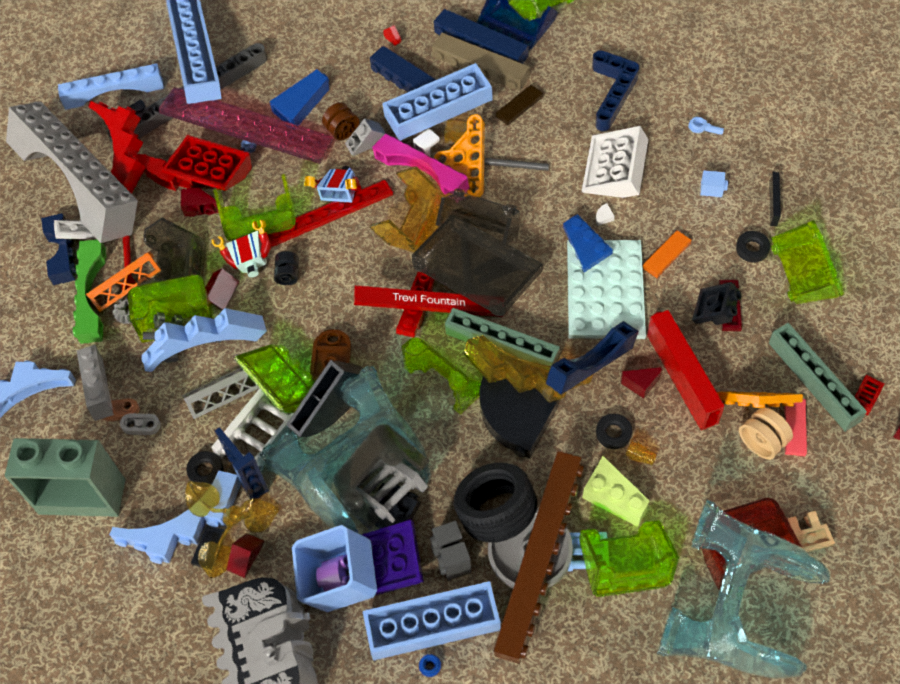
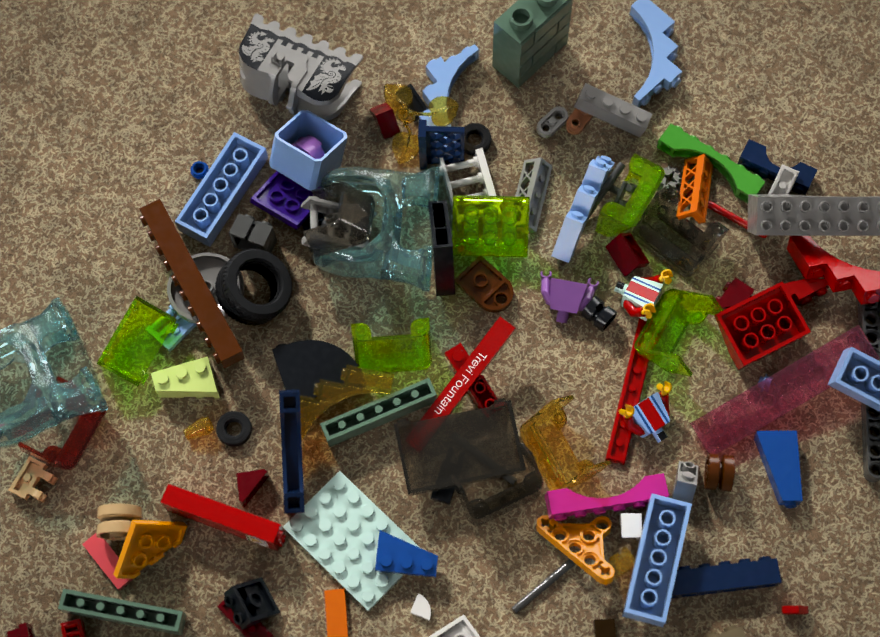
camera: 130 degrees right, 10 degrees up
(291, 298) = (566, 295): none -> medium lavender torso

